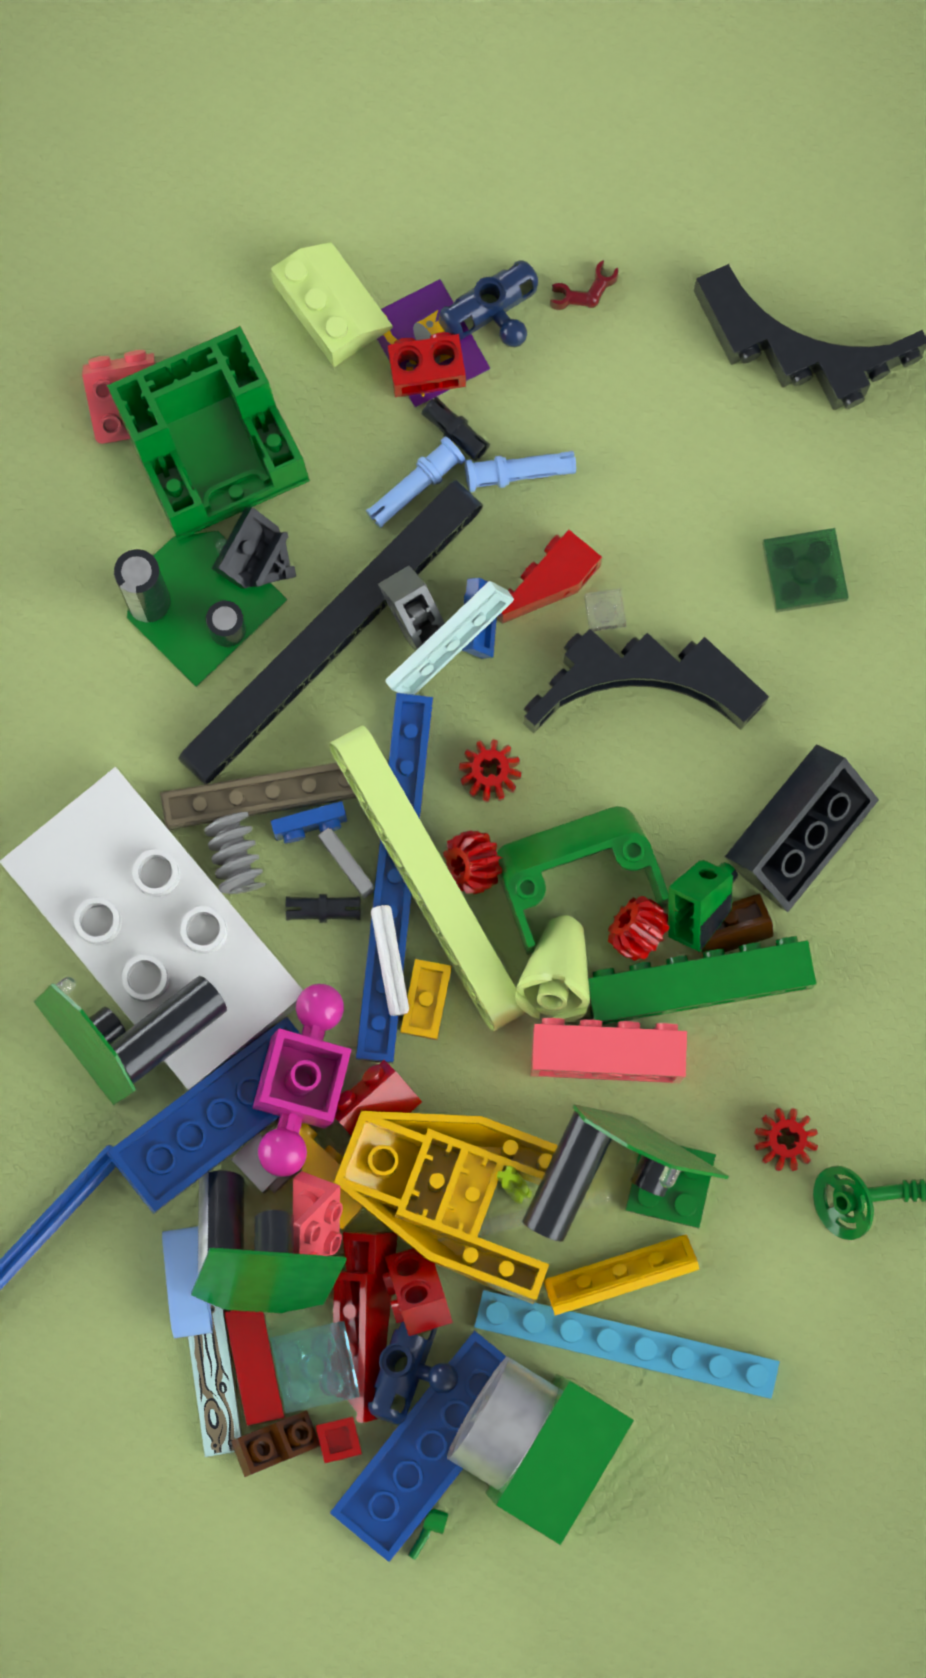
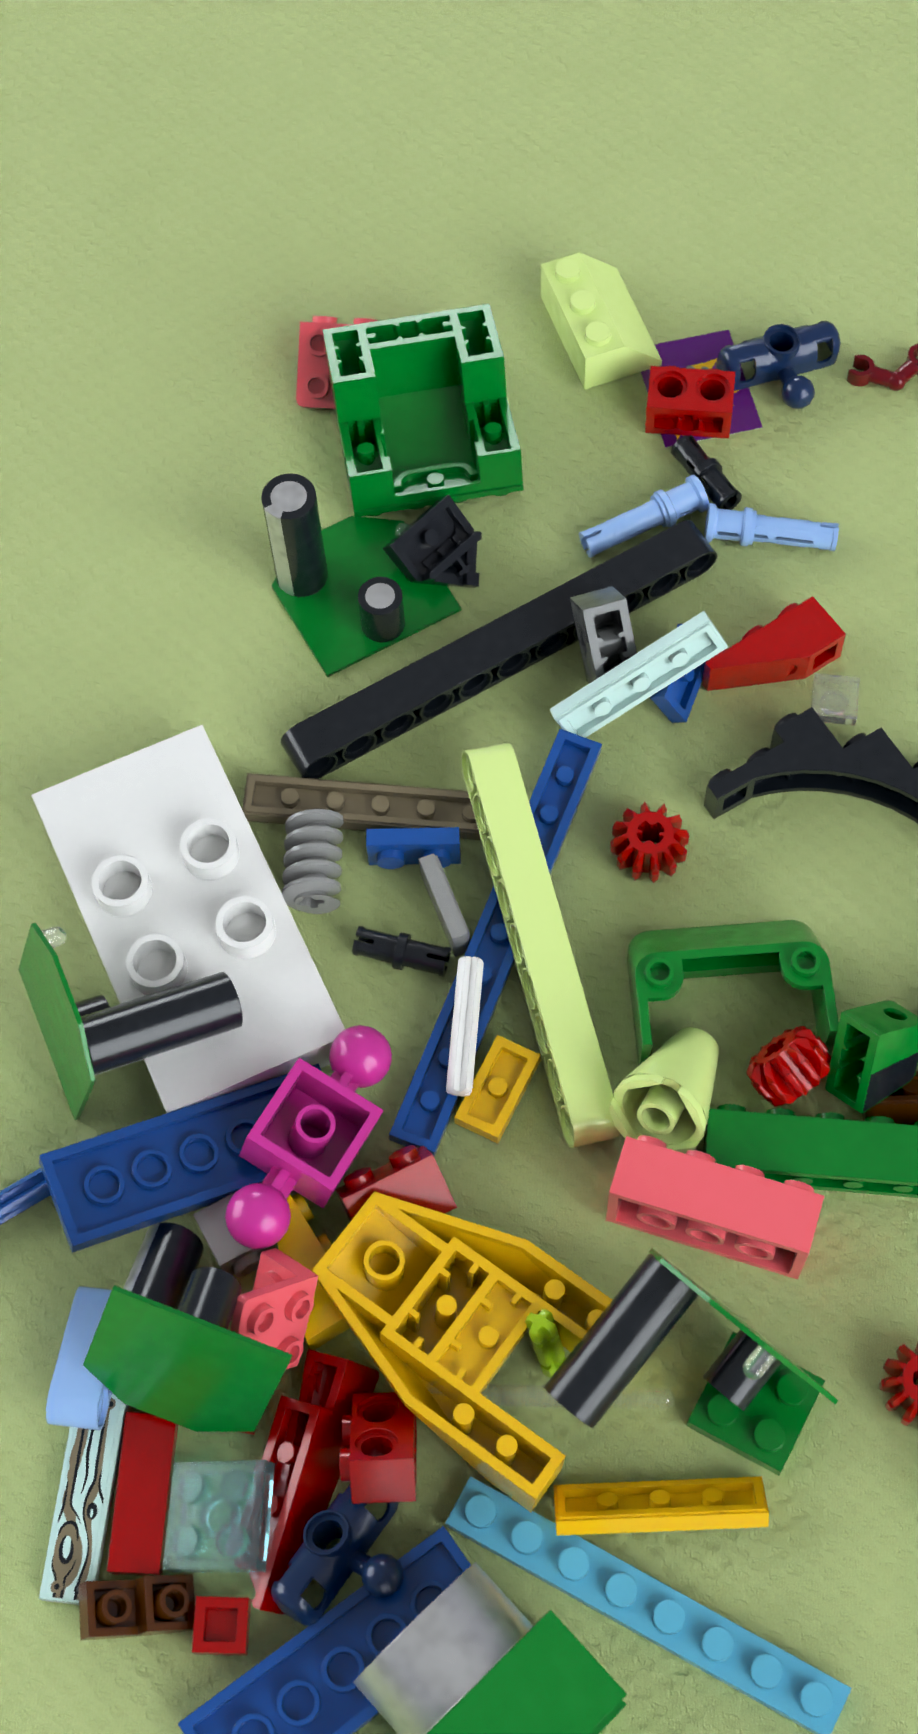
camera: 20 degrees right, 15 degrees down
(473, 861) = (601, 935): red gear -> none

